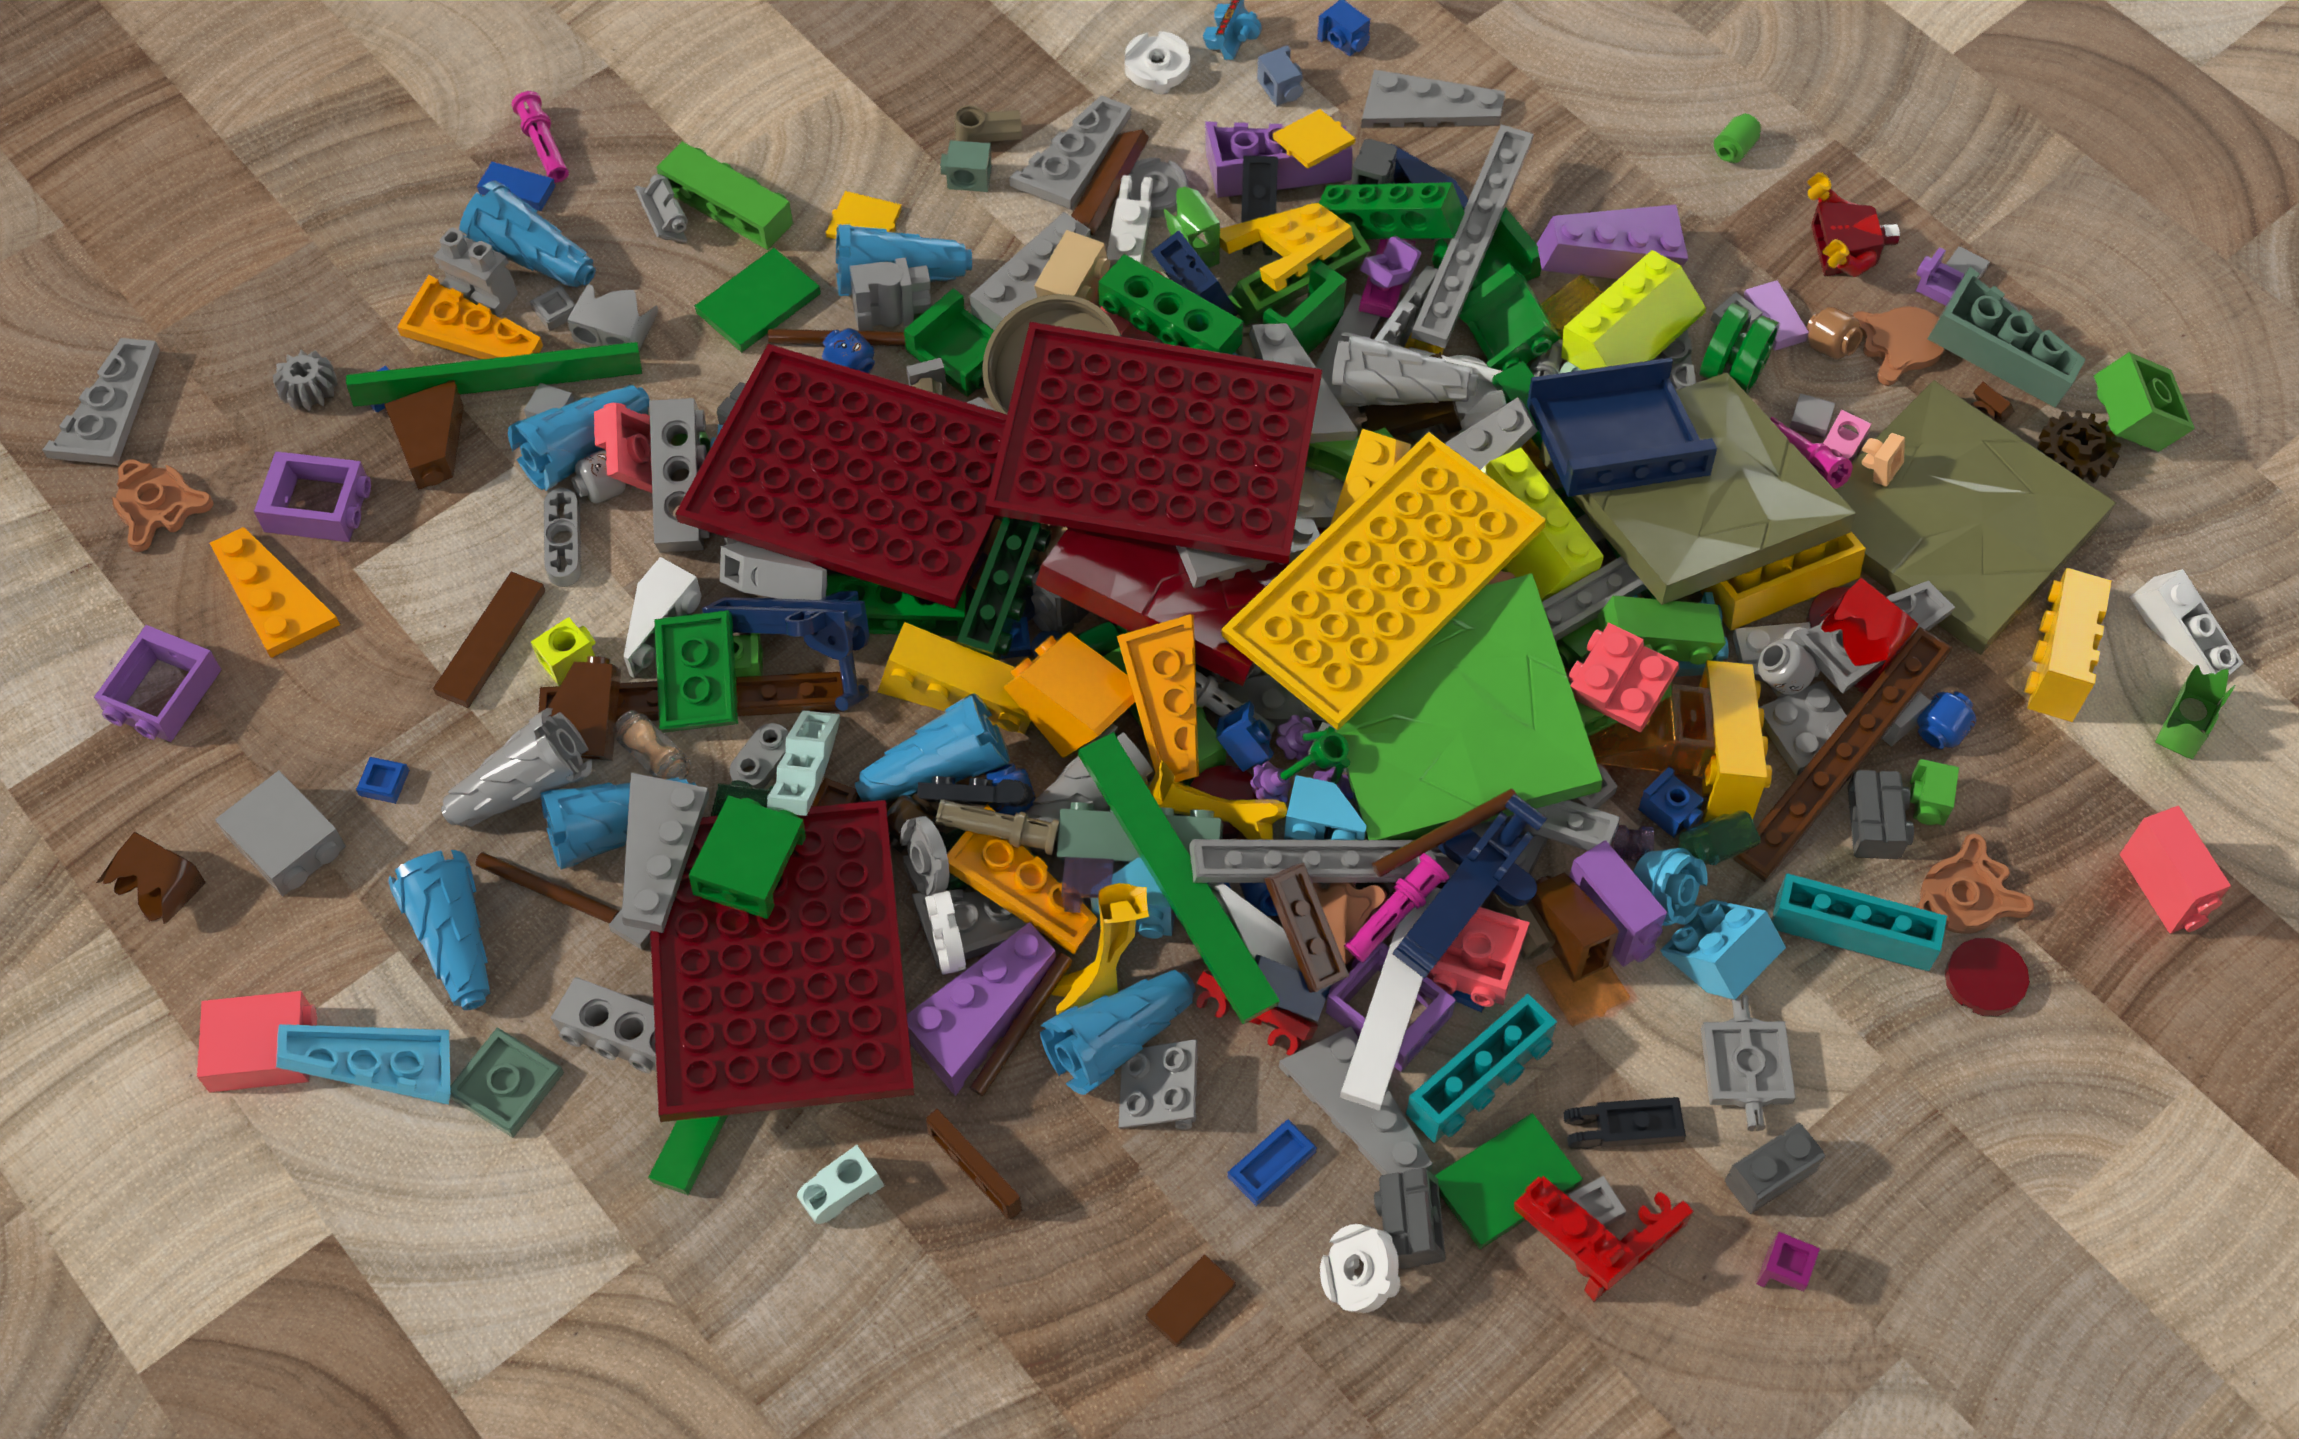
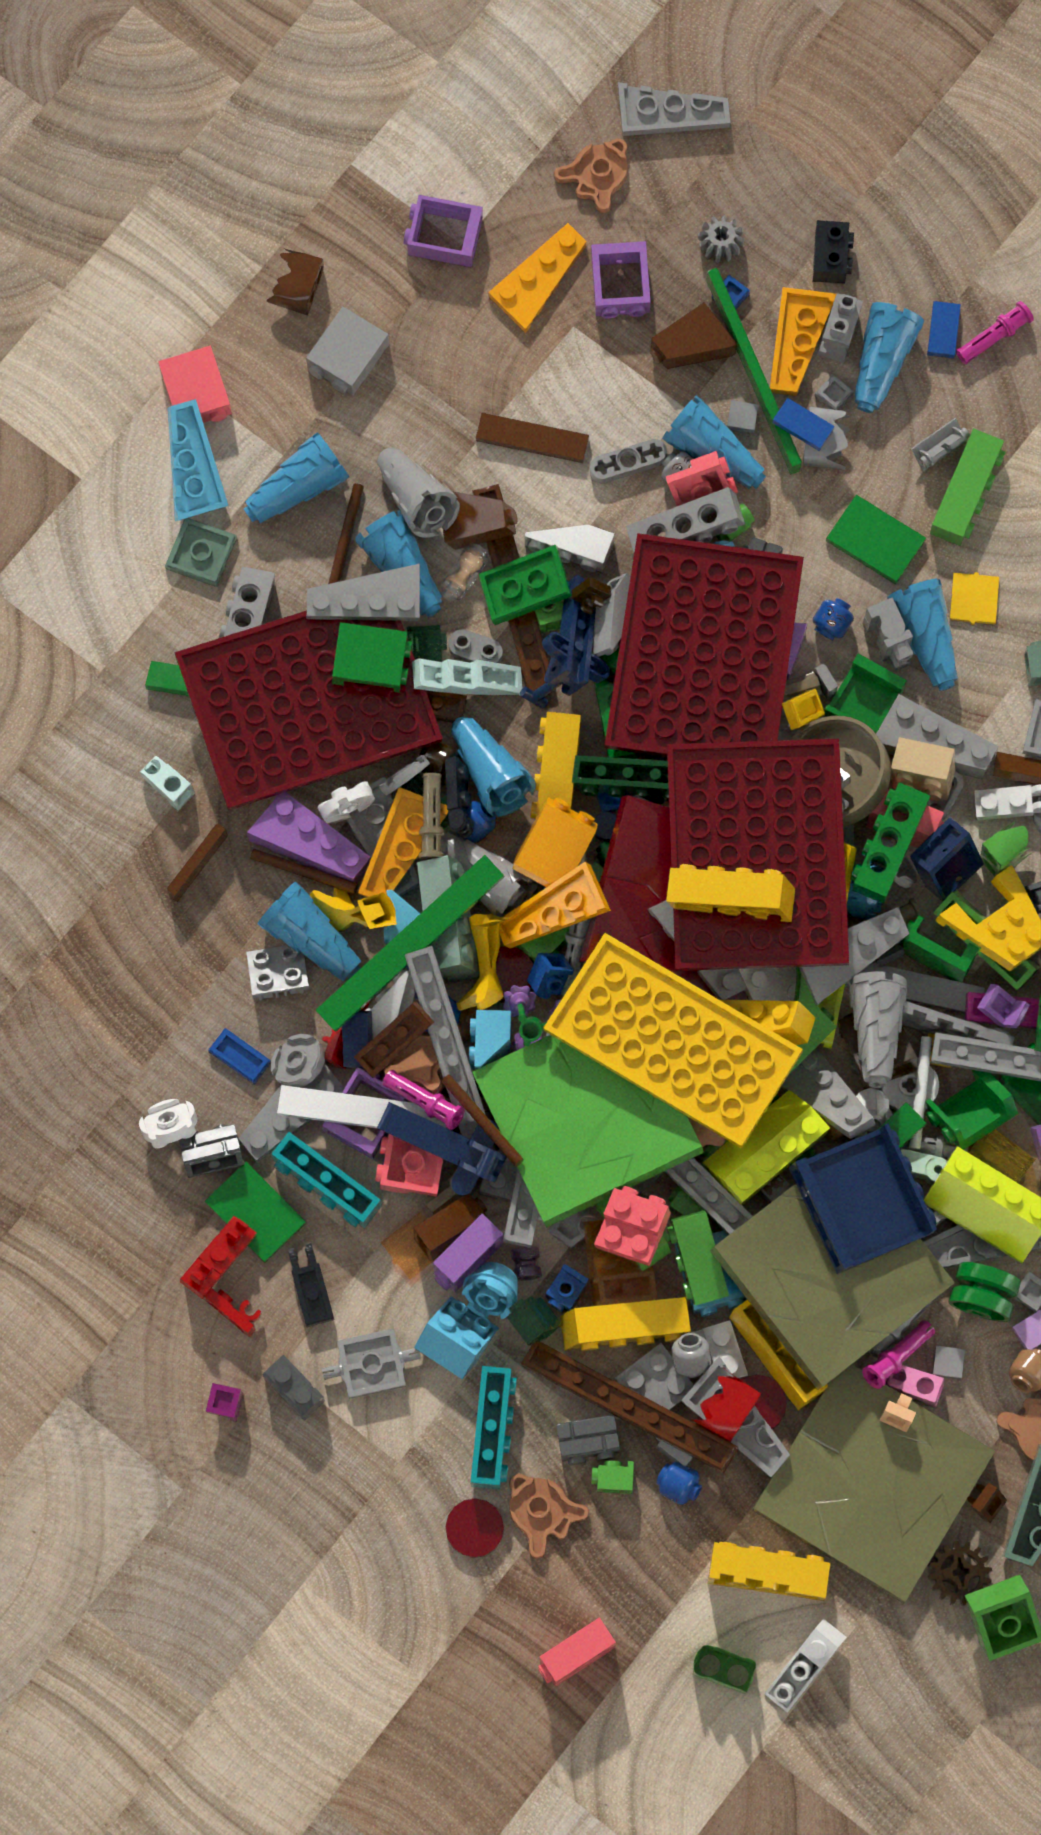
camera: 80 degrees right, 15 degrees up
(371, 271) = (831, 252): none -> black brick
(382, 780) = (406, 403): blue tile -> none
(564, 635) = (528, 480): neon yellow brick -> none
(589, 325) = (803, 424): none -> blue tile
(737, 586) = (591, 594): none -> dark brown tile
(792, 336) = (852, 600): reddish brown bar -> none
(963, 388) = (803, 709): none -> yellow tile
(1084, 879) = (399, 885): clear purple panel -> none
(1190, 1300) = (133, 1021): reddish brown tile -> none
(1209, 460) = (731, 891): none -> yellow wedge
(1300, 1077) = (298, 1061): none -> light grey tile
(1599, 1201) = (246, 1272): light grey plate -> none

